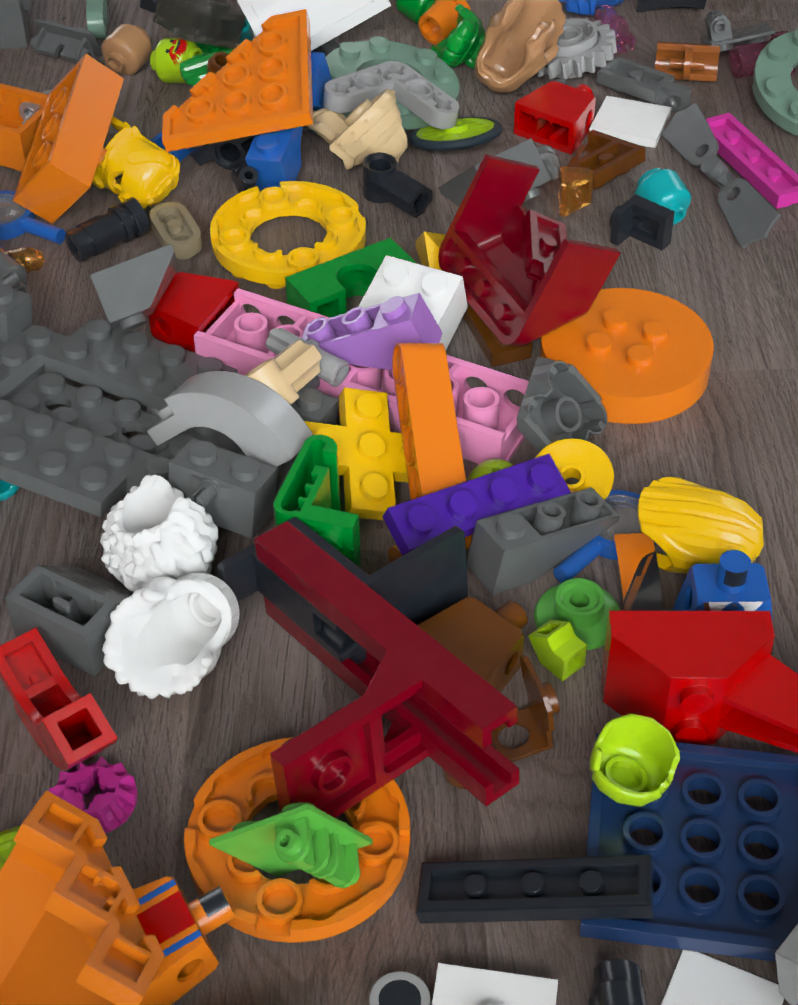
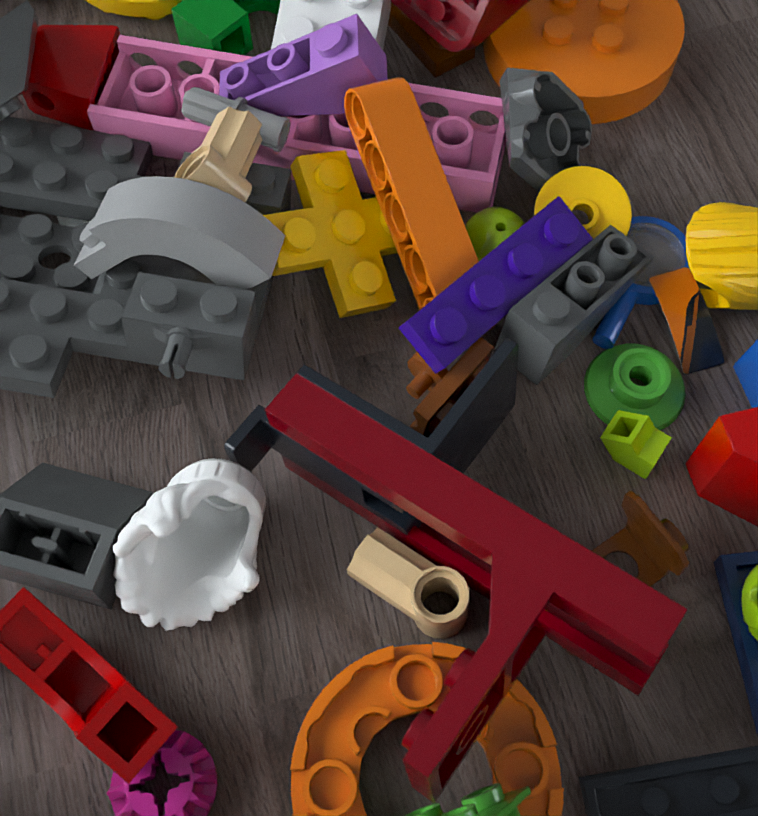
camera: 15 degrees left, 20 degrees up
(157, 535) = (133, 419): white hair -> none
(313, 497) = (295, 344): green piece -> none
(321, 687) = (407, 580): none -> tan piece
(481, 637) = (547, 466): reddish brown torso -> none

